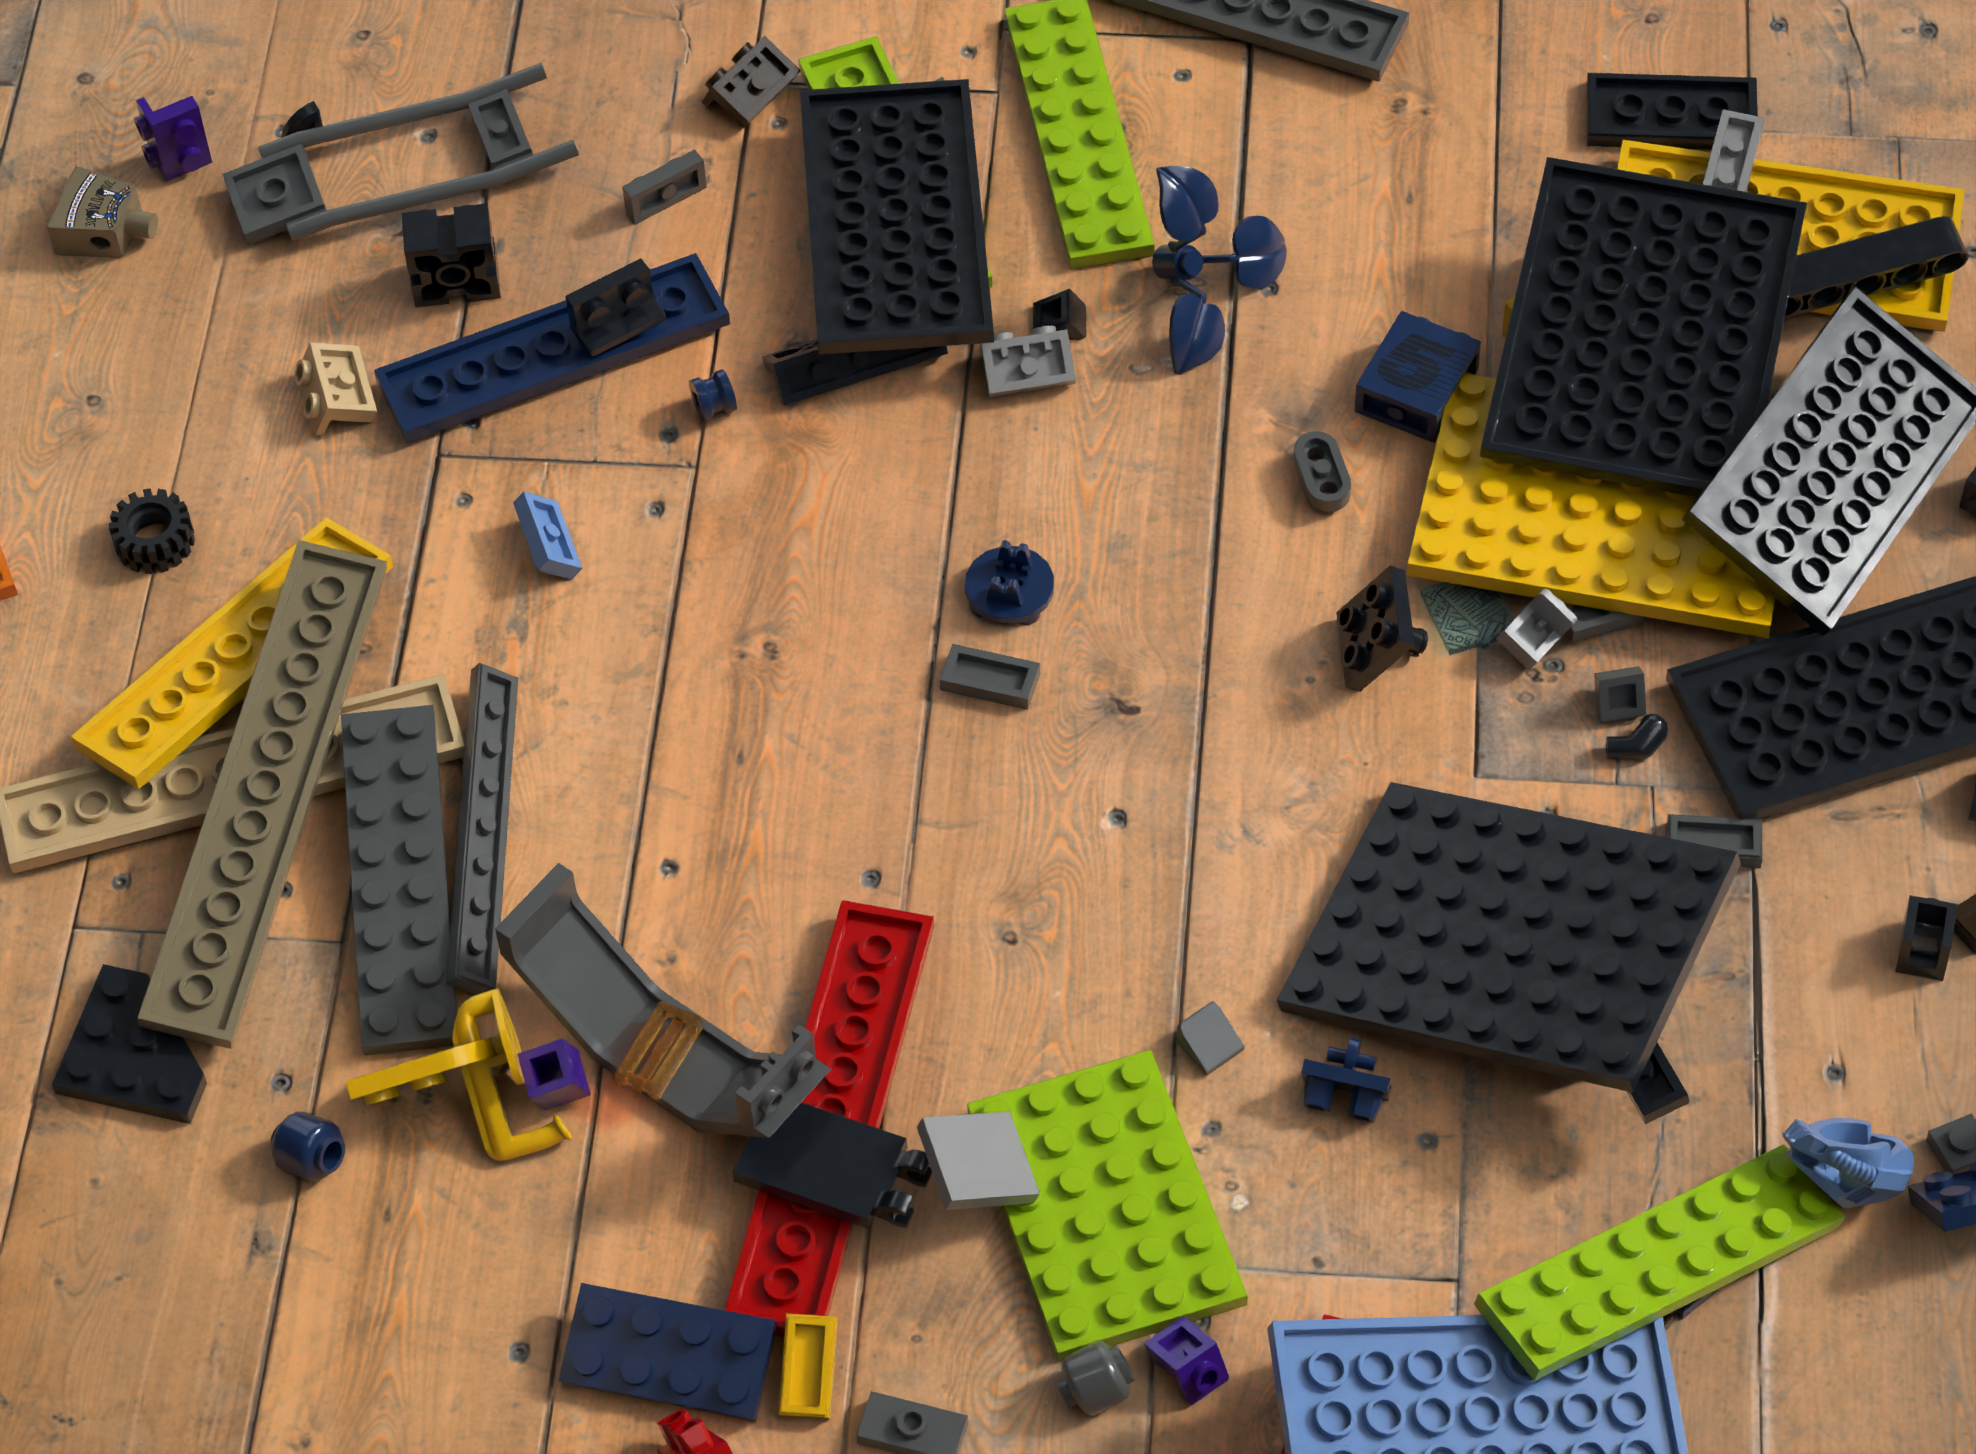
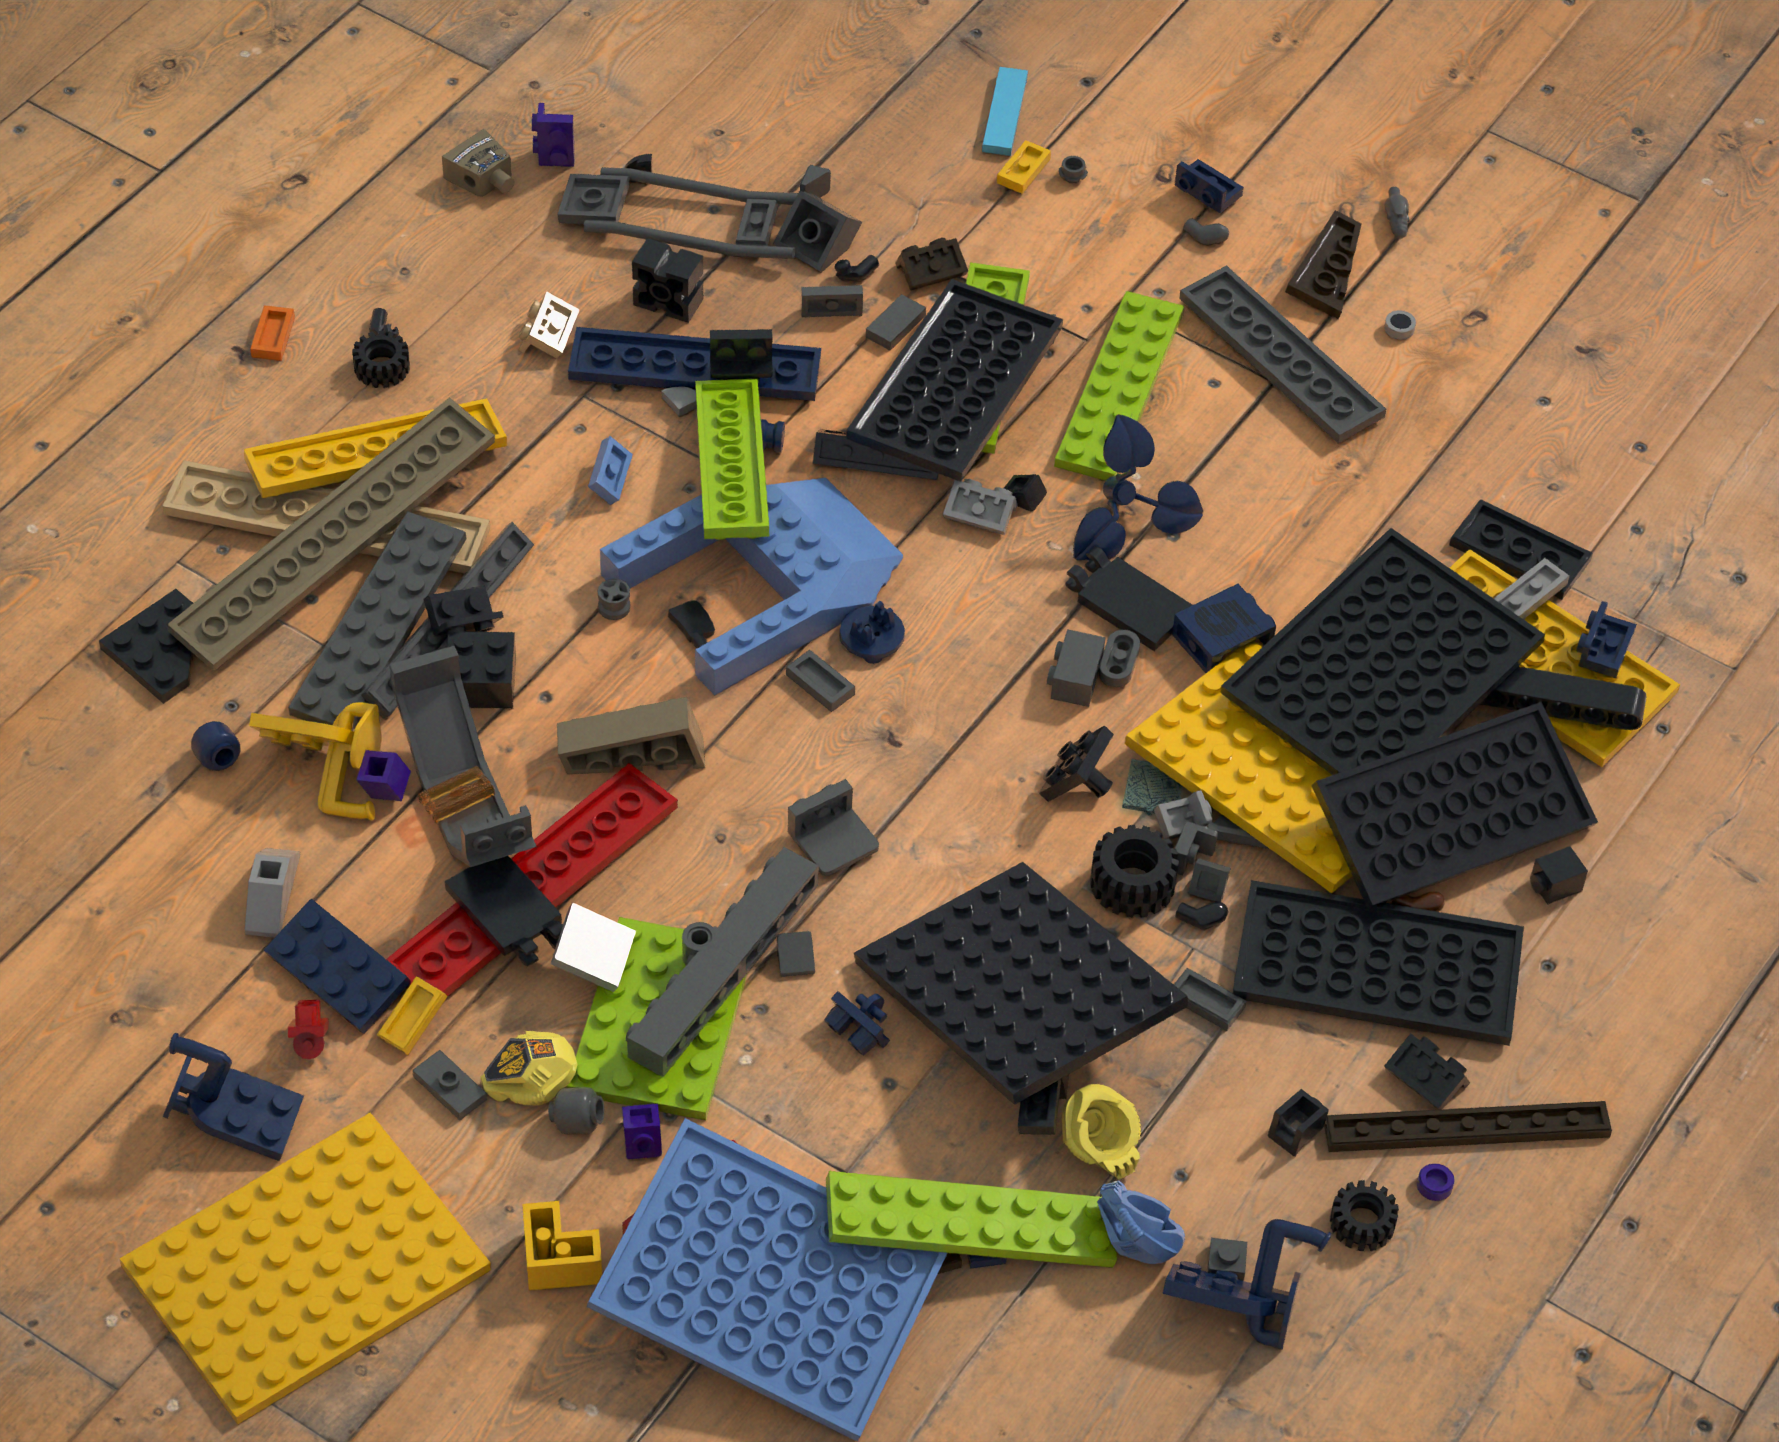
camera: 25 degrees right, 5 degrees down
(114, 488) = (378, 323): none -> black arm
(497, 811) = (461, 611): none -> black bracket
(515, 1299) = (270, 891): none -> light grey slope
(537, 42) = (816, 181): none -> dark grey slope
(567, 400) = (680, 399): none -> light grey tile
(583, 106) = (817, 231): none -> dark grey slope
(585, 848) = (486, 667): none -> black brick
(655, 140) = (858, 272): none -> black arm
(674, 689) = (614, 599): none -> dark grey wheel
(703, 449) = (731, 459): none -> lime plate
(756, 177) = (895, 322): none -> dark grey tile
(791, 683) = (693, 622): none -> black piece
(824, 867) = (640, 735): none -> dark tan wedge
(843, 513) = (816, 558): none -> medium blue wedge
(1002, 1355) = (530, 1069): none -> light yellow helmet
(1137, 1096) = (719, 960): none -> dark grey hinge
(1143, 861) = (830, 829): none -> dark grey bracket
(1276, 391) = (1126, 597): none -> black tile
(1283, 508) = (1077, 667): none -> dark grey brick
(1533, 697) = (1128, 891): none -> black tyre
(1567, 662) = (1193, 840): none -> dark grey bracket
(1725, 1065) = (1102, 1129): none -> light yellow helmet
(1858, 179) = (1605, 643): none -> dark blue bracket
(1877, 592) = (1429, 901): none -> reddish brown arm

